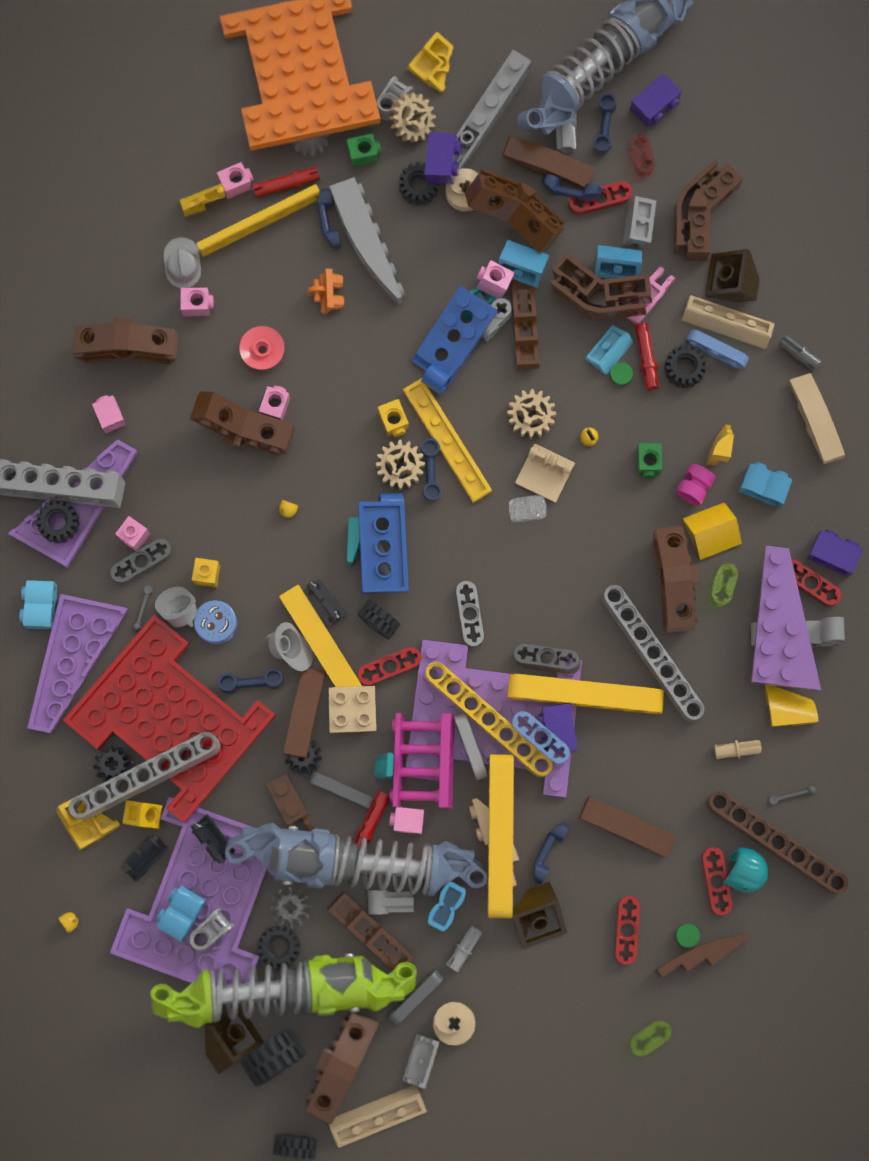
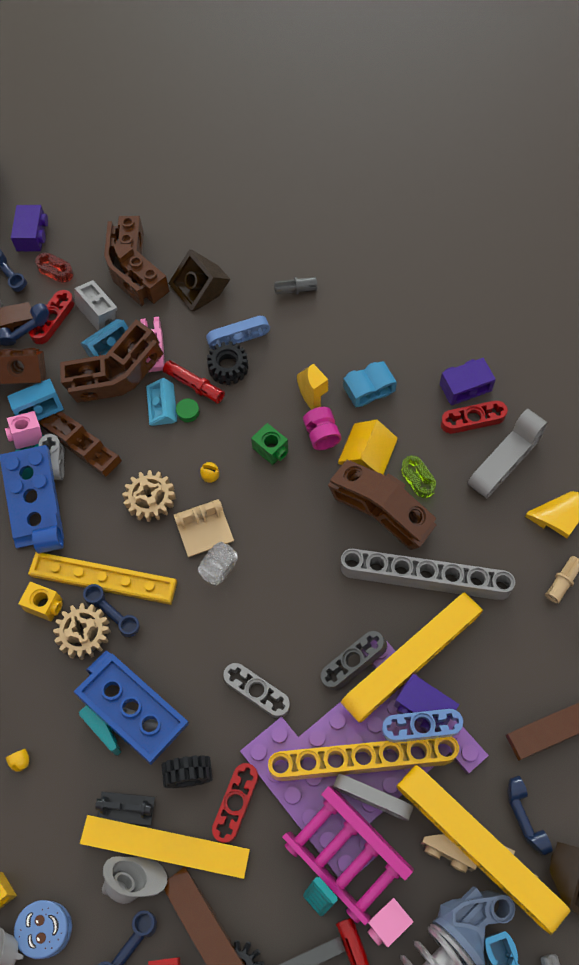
camera: 40 degrees left, 15 degrees down
(352, 709) = (241, 875): tan hinge -> none
(728, 322) = (226, 312): tan slope -> none
(782, 639) = (504, 468): medium lavender wing -> none
(817, 418) = (358, 312): tan slope -> none

